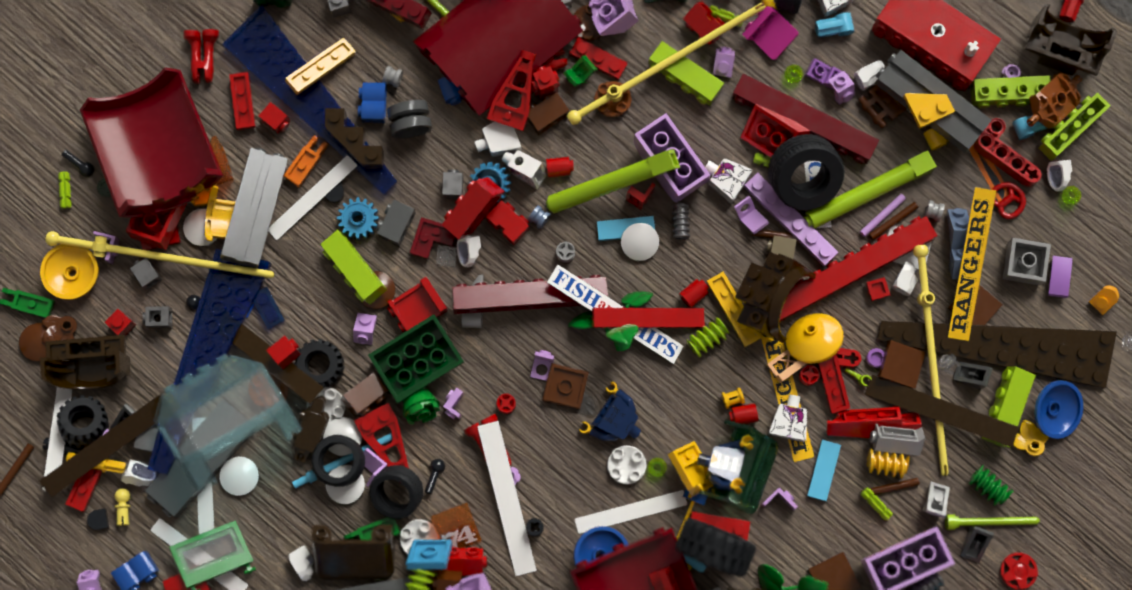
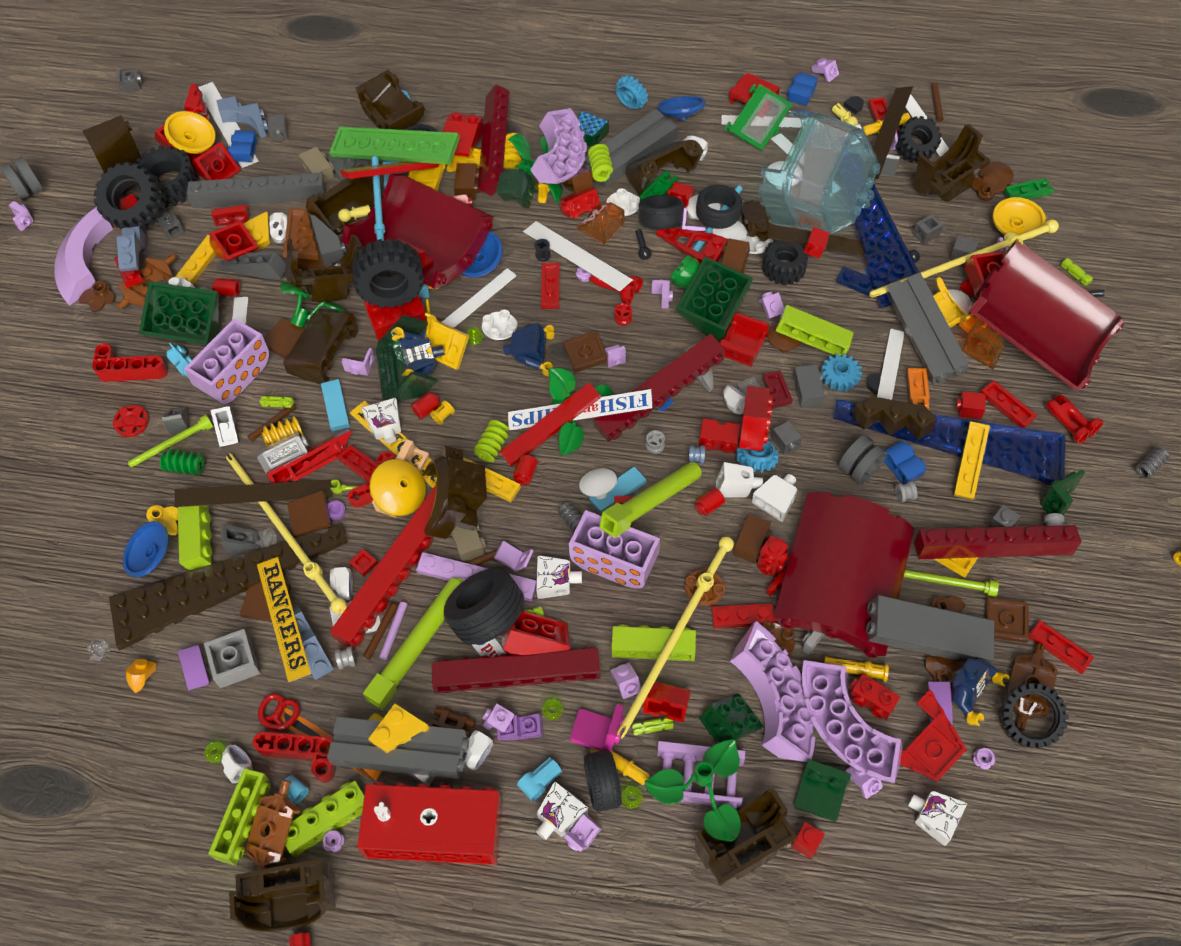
camera: 150 degrees right, 20 degrees down
(120, 323) = (951, 210): red brick -> none
(358, 510) = (682, 192): none -> red brick
(429, 554) = (606, 184): dark azure tile -> none
(509, 115) = (785, 505): red plate -> none
(552, 480) = (550, 286): none -> red plate
(580, 71) = (750, 588): green bracket -> none
(807, 542) = (318, 345): none -> dark brown windscreen

